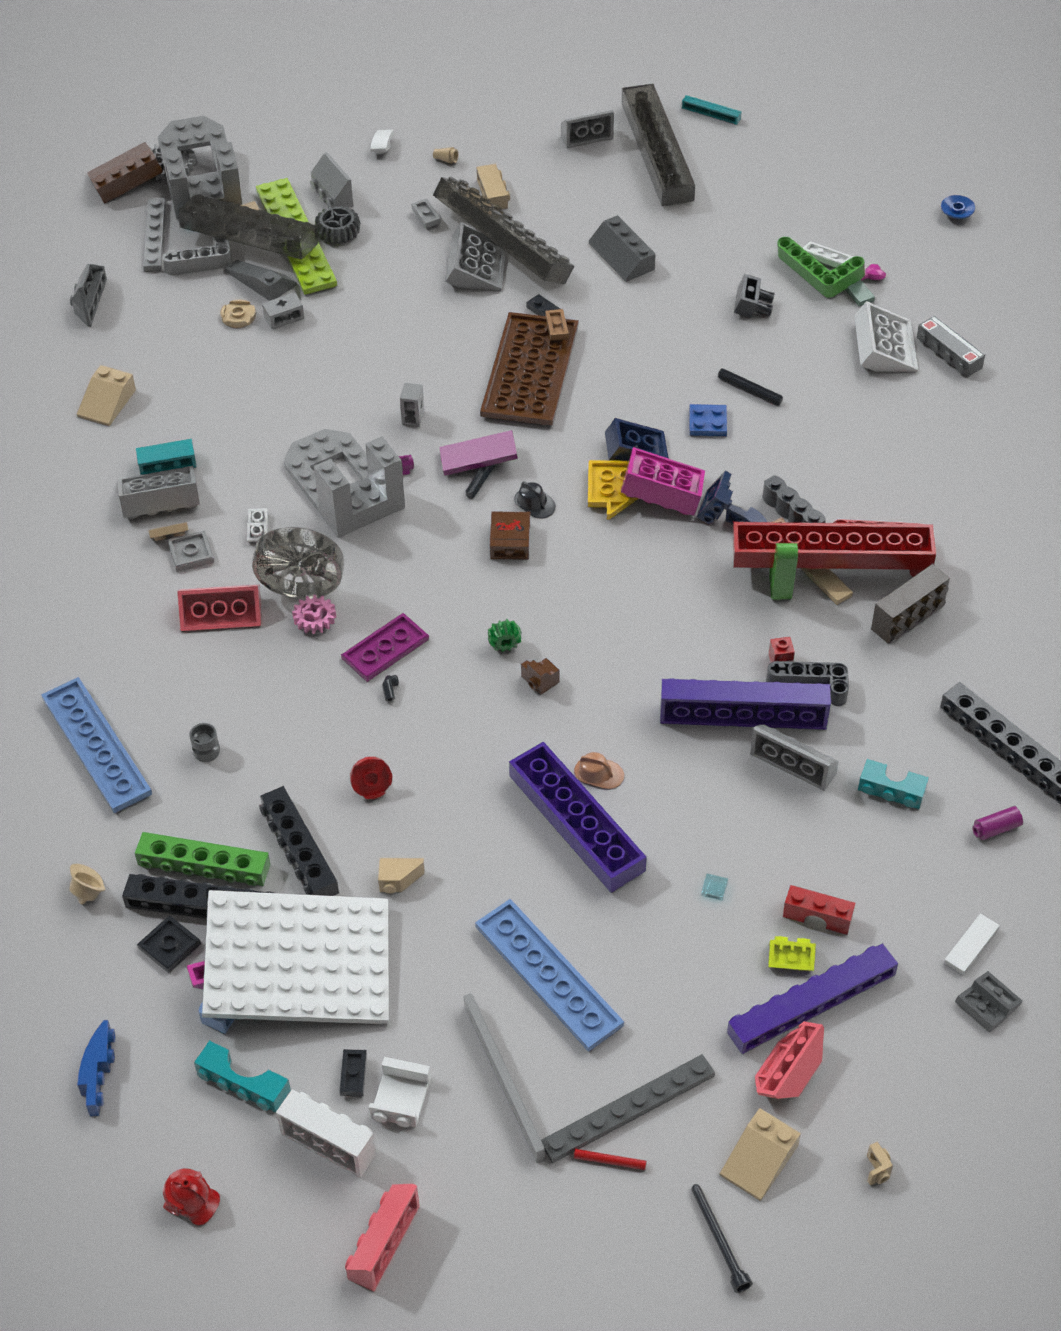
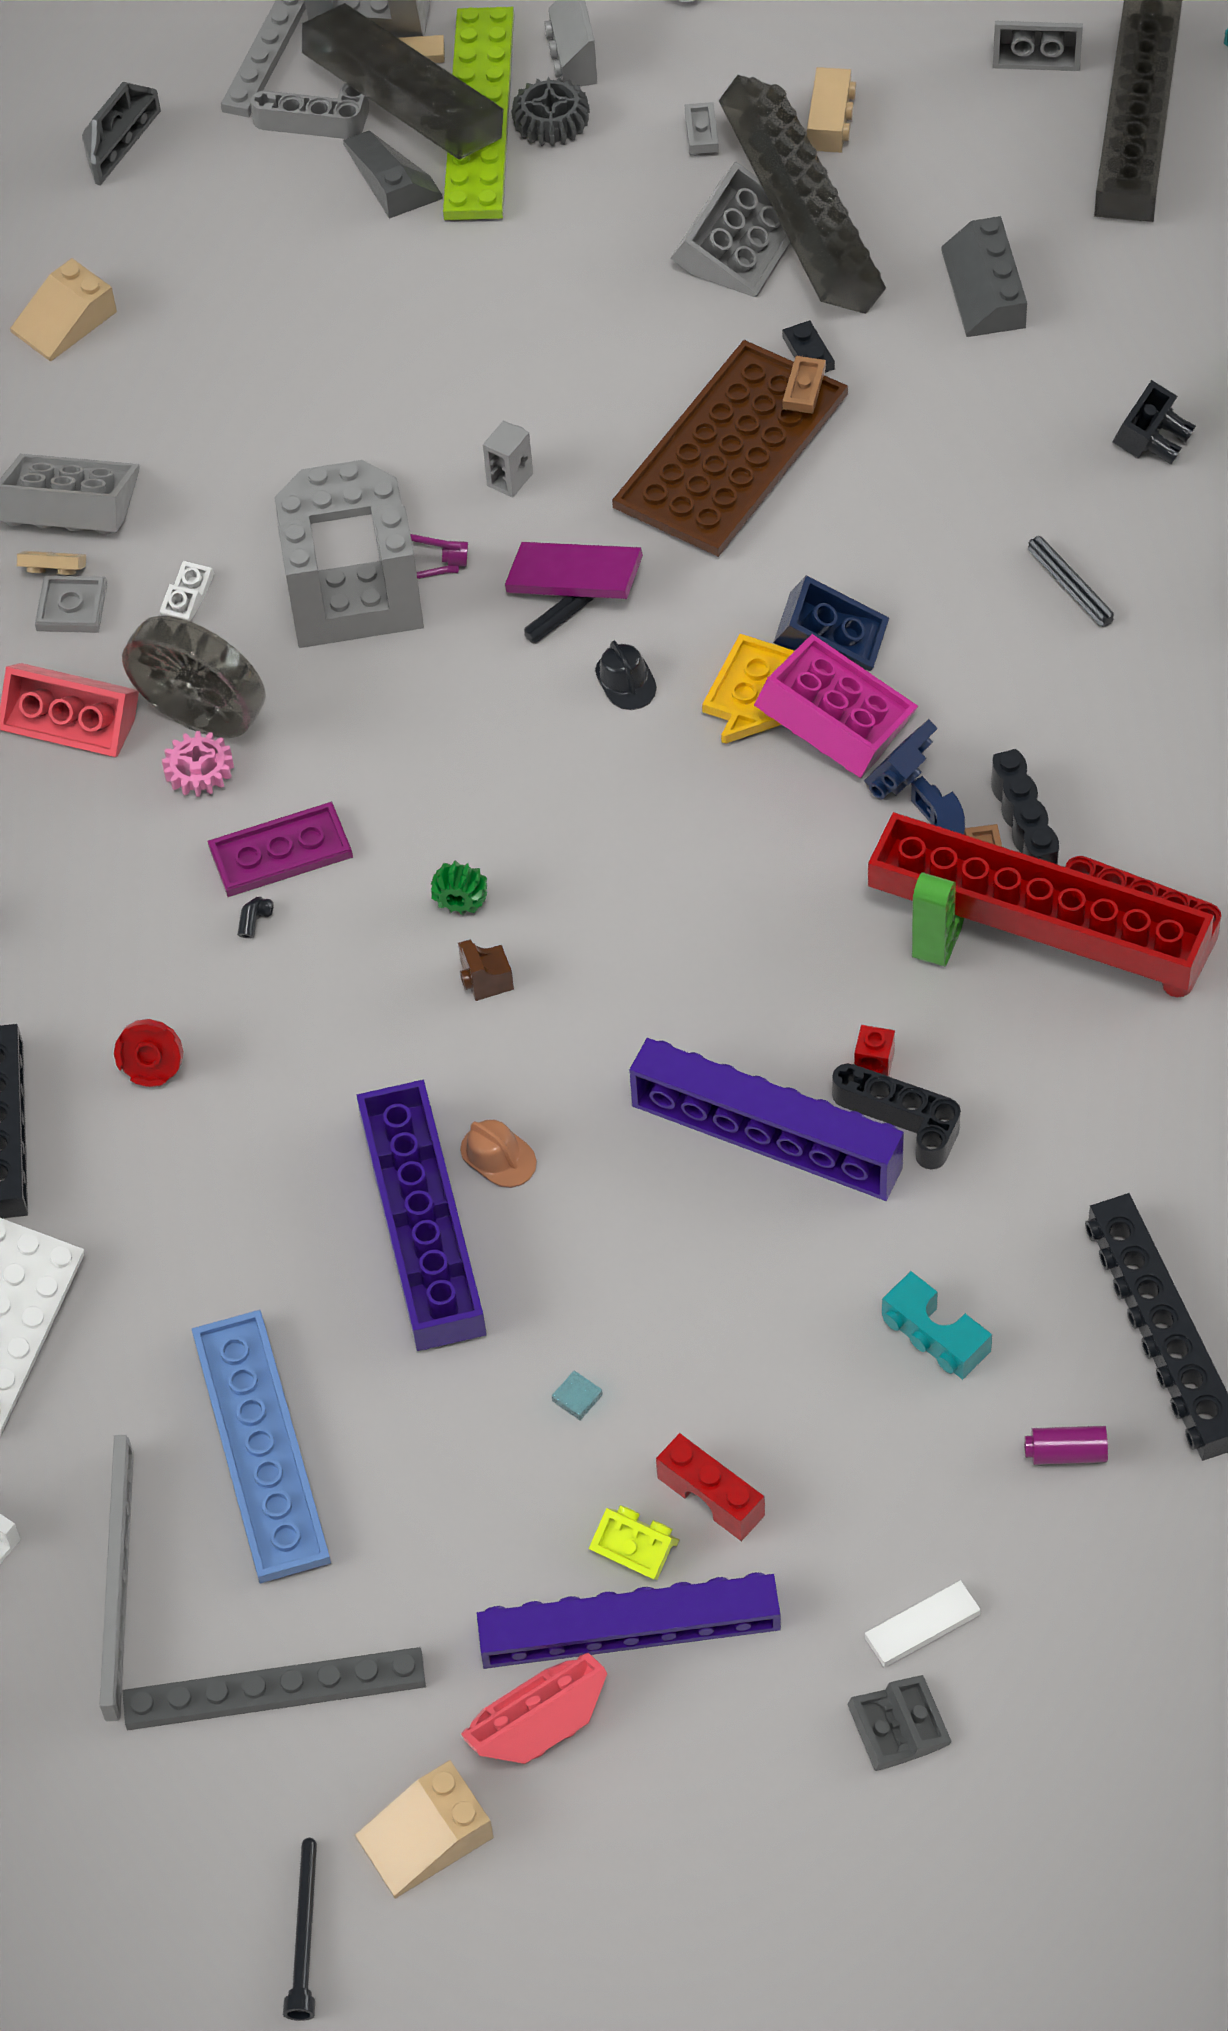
camera: 25 degrees right, 5 degrees up
(166, 456) = (103, 438): teal brick -> none
(238, 313) = (327, 225): tan tile -> none
(283, 310) = (394, 240): light grey brick -> none
(399, 873) = (120, 1216): tan slope -> none
(446, 154) = (787, 31): tan cone -> none
(509, 535) = (552, 723): reddish brown panel -> none
(610, 1159) = (209, 1755): red bar -> none
(707, 420) = (971, 619): blue plate -> none
(793, 756) = (802, 1227): light grey slope -> none
(829, 584) = (1019, 964): tan tile -> none
(881, 1162) = (590, 1924): tan bracket -> none
(910, 604) = (1121, 1036): dark brown brick -> none

